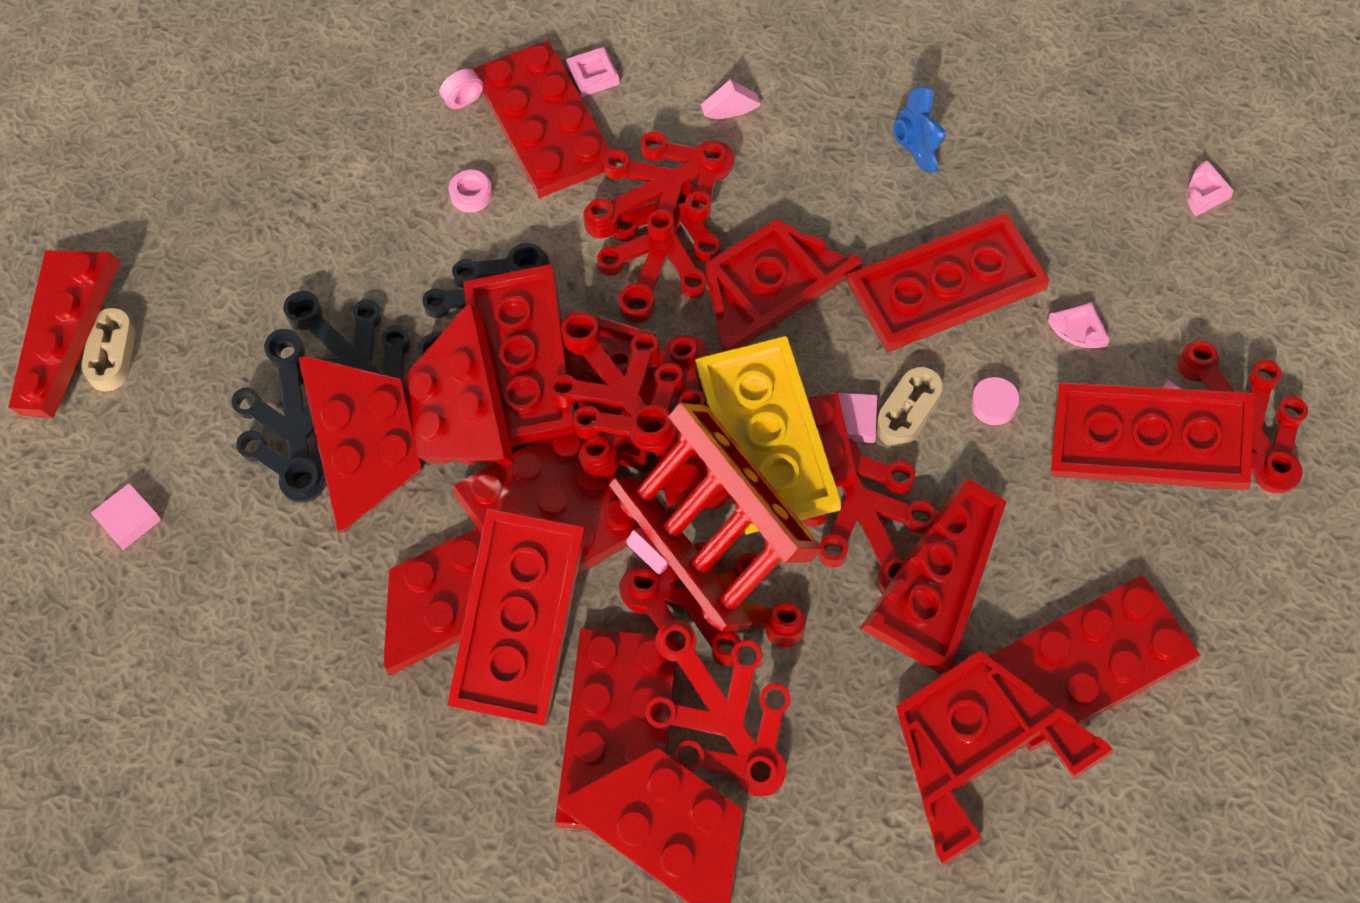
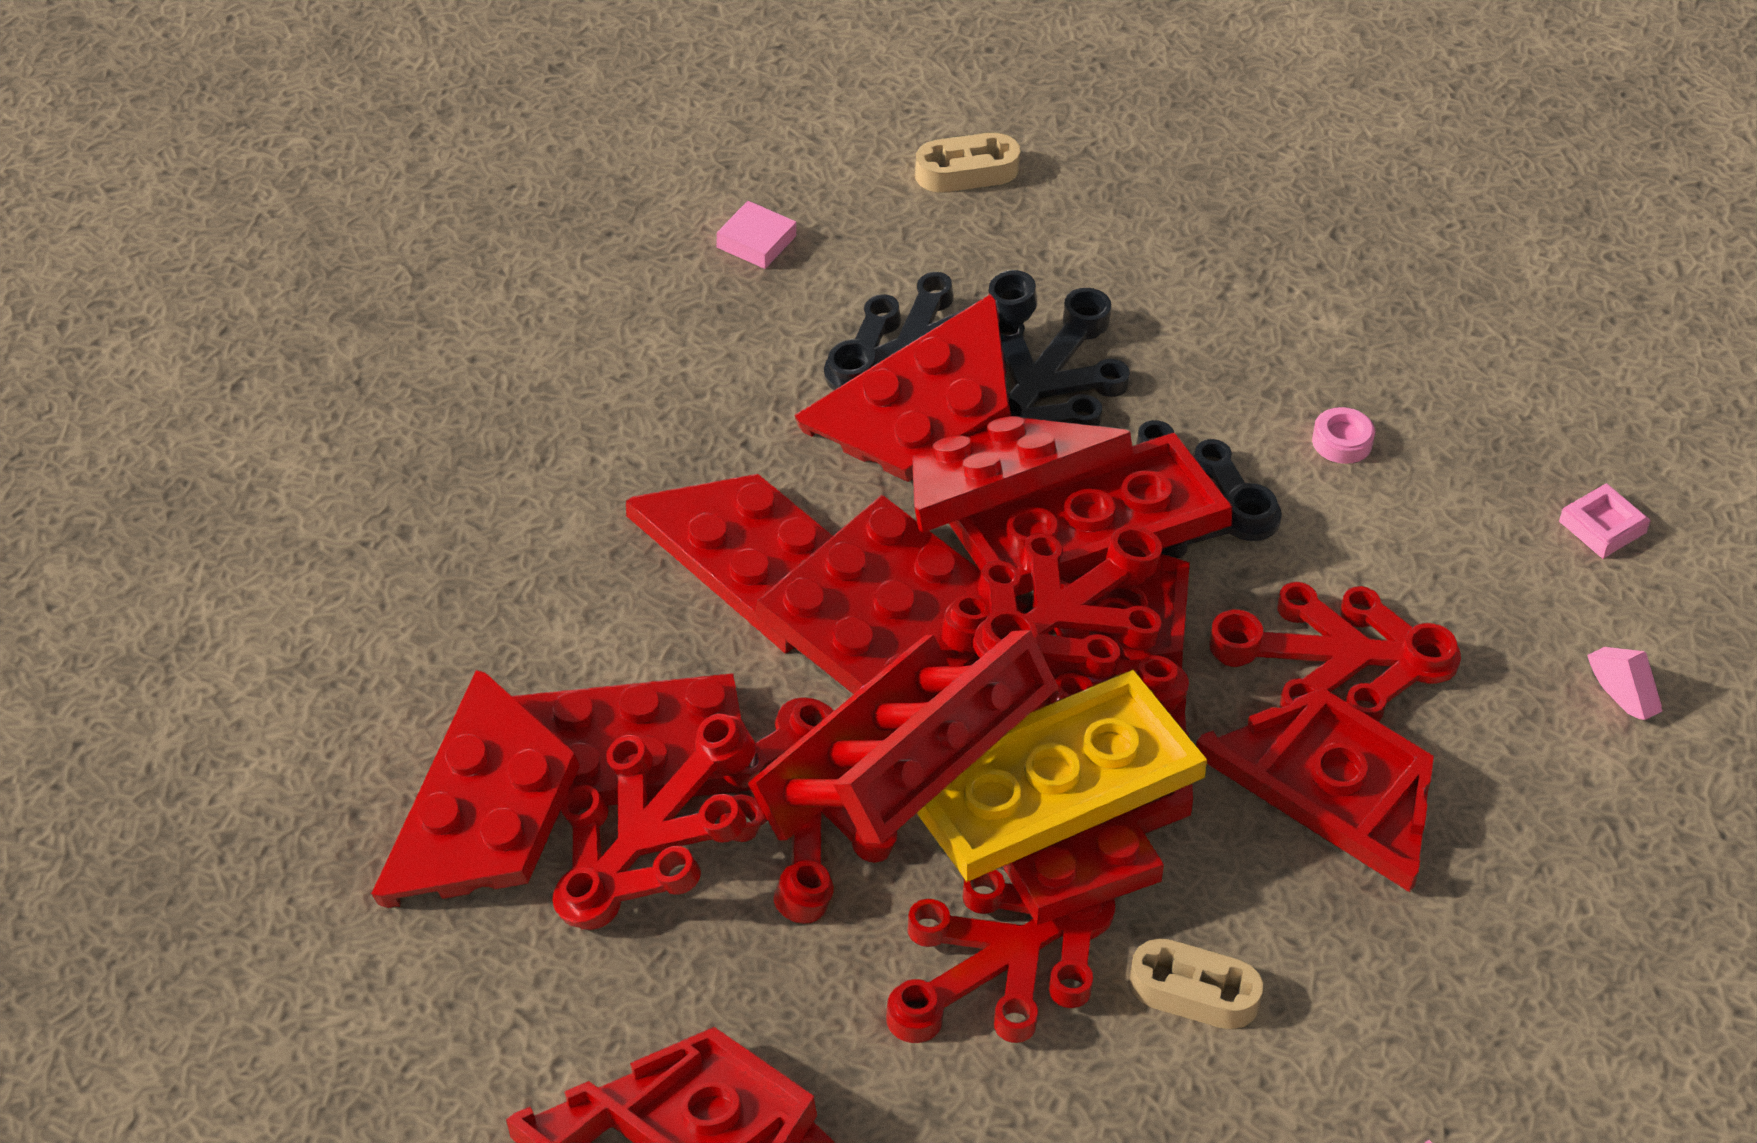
camera: 70 degrees right, 15 degrees down
(60, 321) = (981, 110): red wing -> none
(461, 88) = (1495, 382): bright pink tile -> none
(516, 617) = (718, 587): red plate -> none
(543, 118) = (1497, 485): red plate -> none
(660, 182) = (1494, 662): red plant -> none
(860, 416) = (1153, 914): bright pink tile -> none
(918, 130) = (1678, 905): blue plate -> none
(937, 584) = (911, 1046): red wing -> none
(947, 282) = (1430, 997): red plate -> none
(995, 401) = (1248, 1092): bright pink tile -> none

